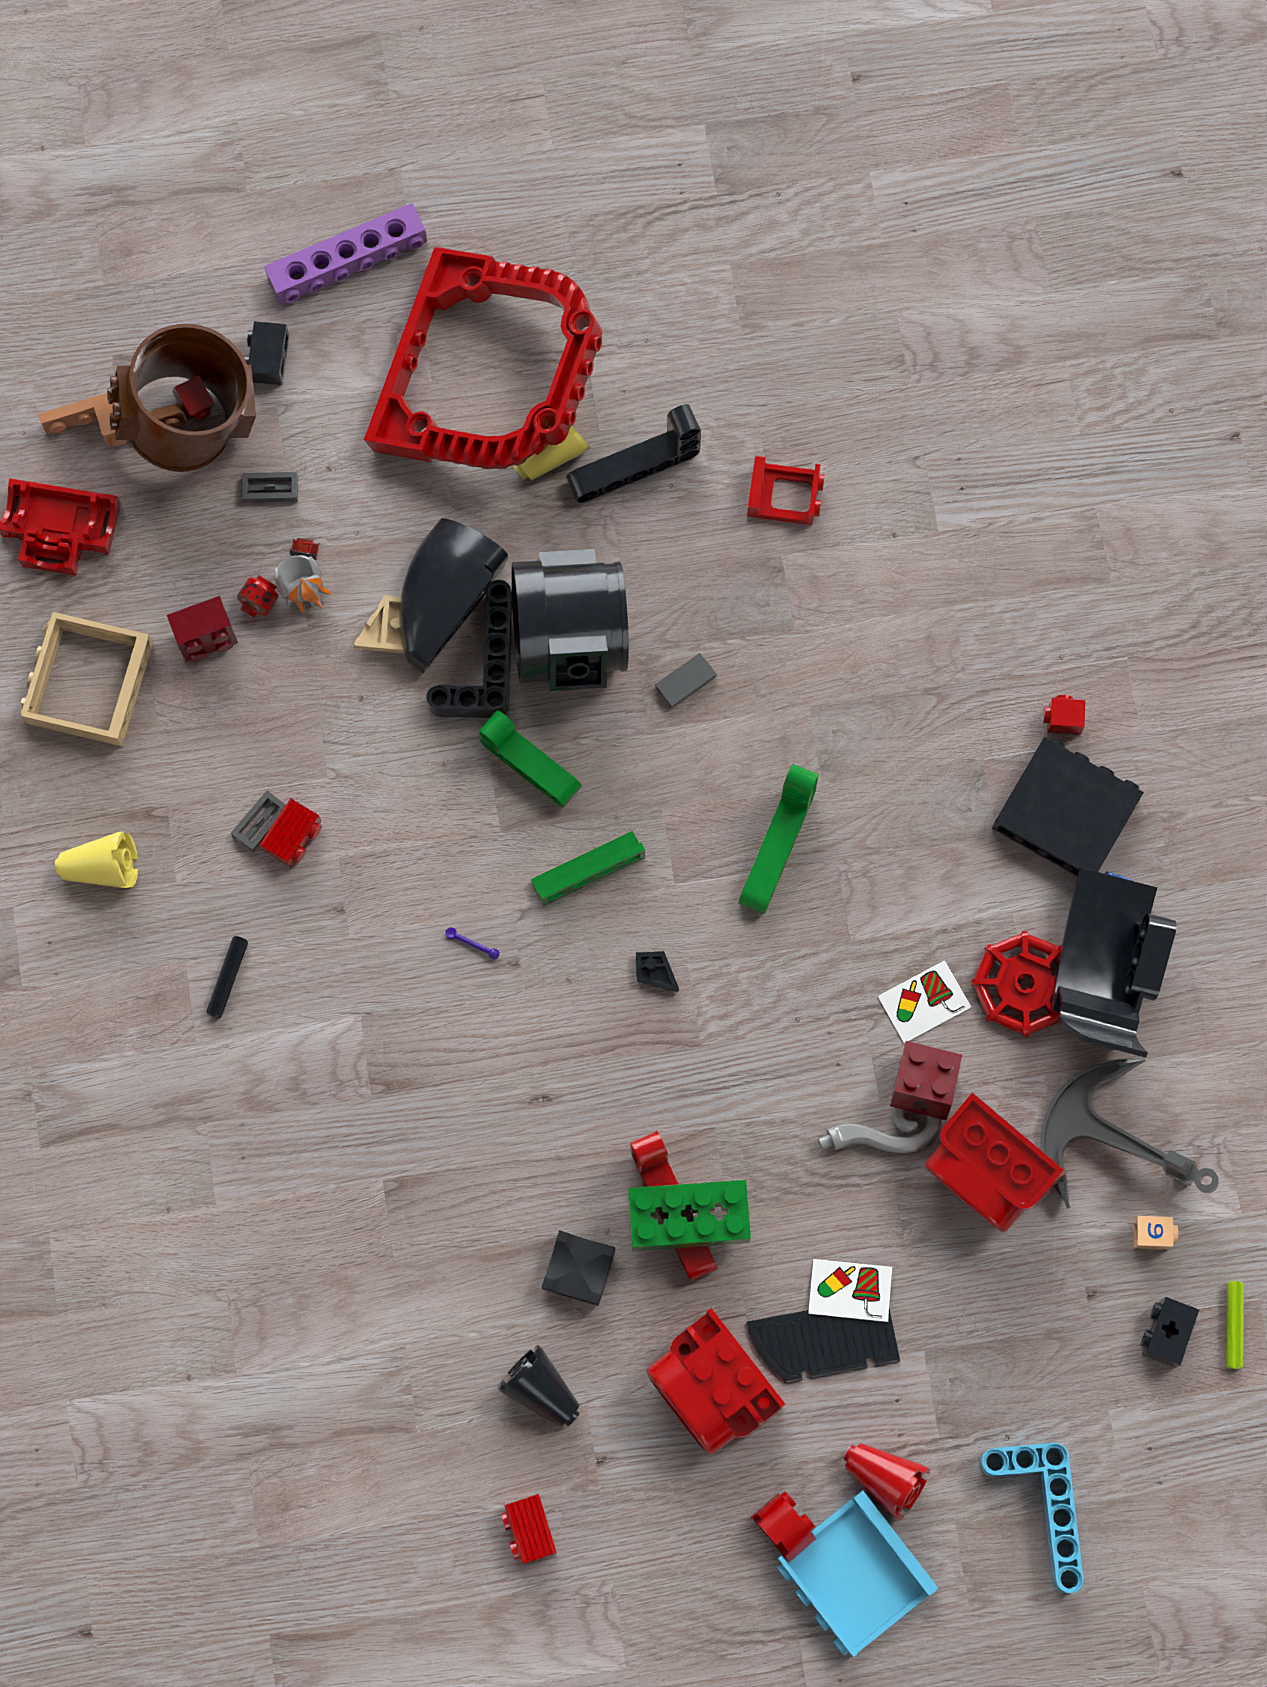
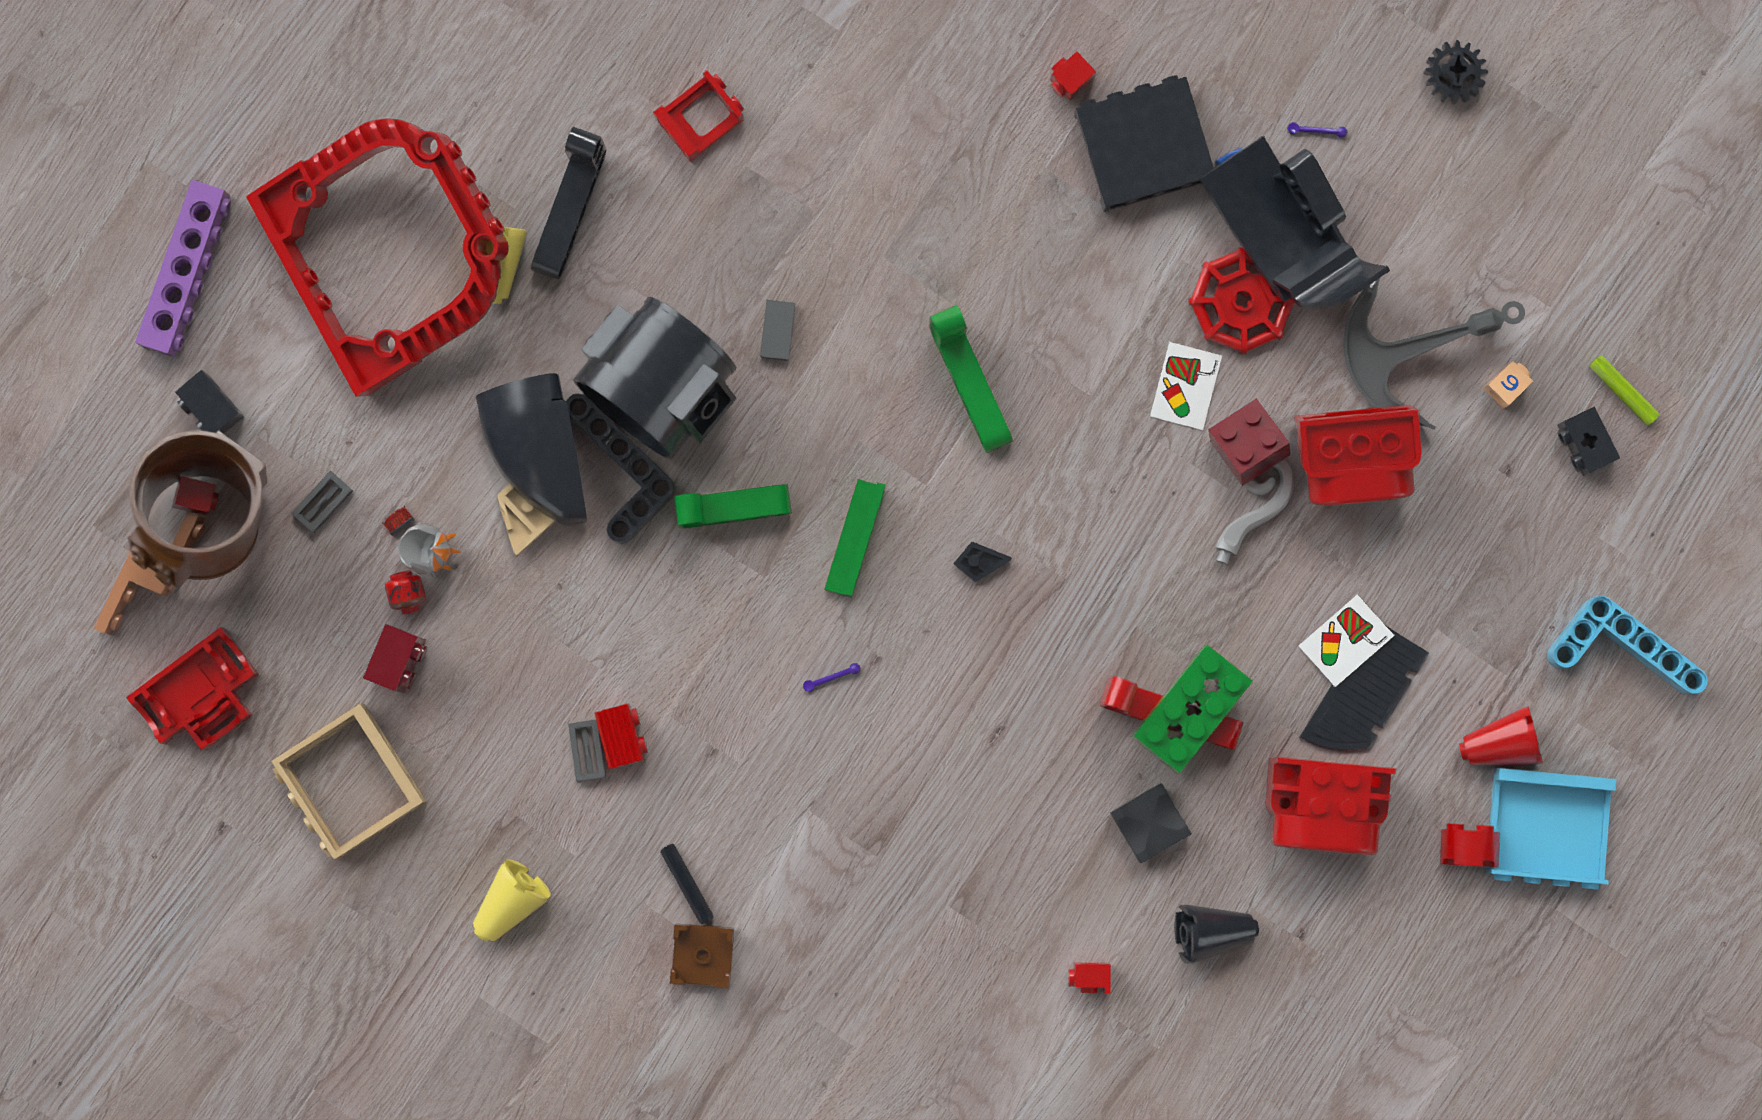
camera: 50 degrees left, 10 degrees up
(184, 1034) = (702, 955): none -> reddish brown panel
(423, 1329) = (1090, 977): none -> red brick
(529, 1529) = (1306, 1032): red brick -> none
(1185, 906) = (1293, 128): none -> dark purple hinge

